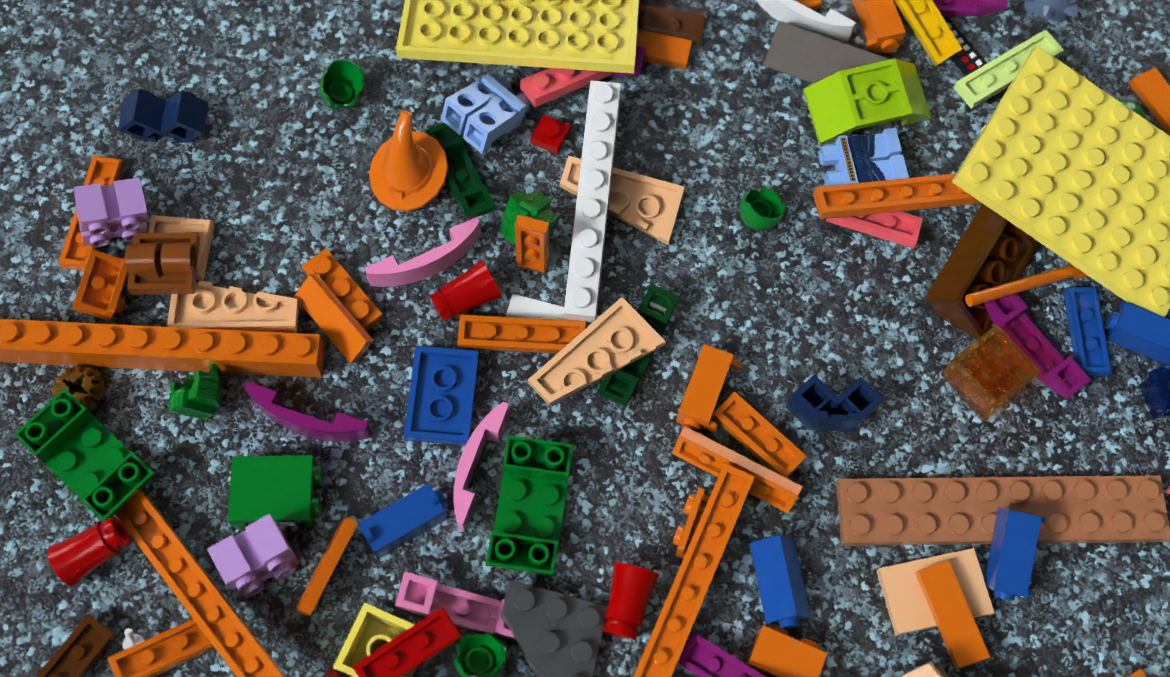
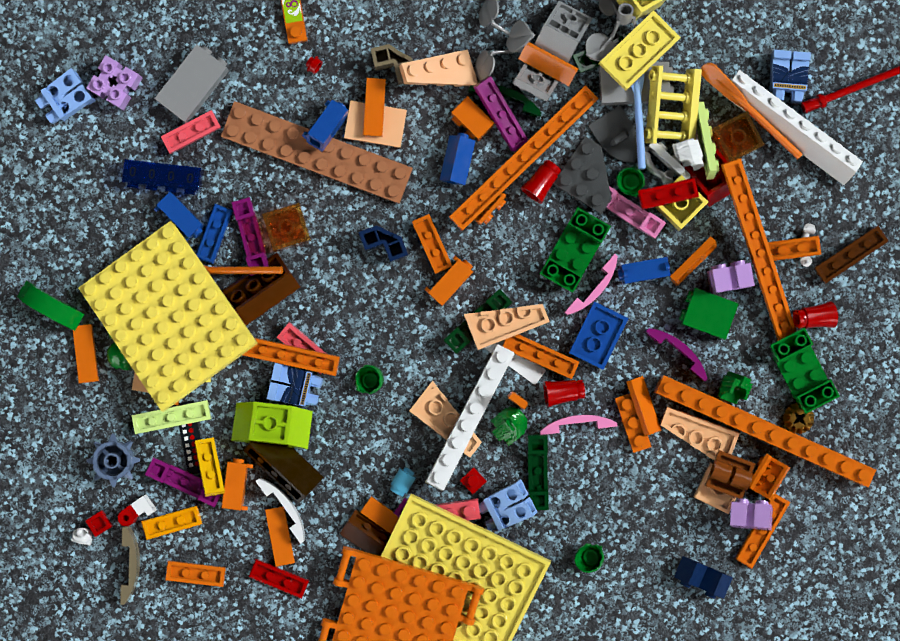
camera: 155 degrees left, 20 degrees up
(408, 168) = (568, 485): orange piece -> none
(650, 95) = (402, 481): none -> medium azure brick
(711, 456) = (436, 210): orange plate -> none
(1081, 648) = (314, 64): none -> red plate

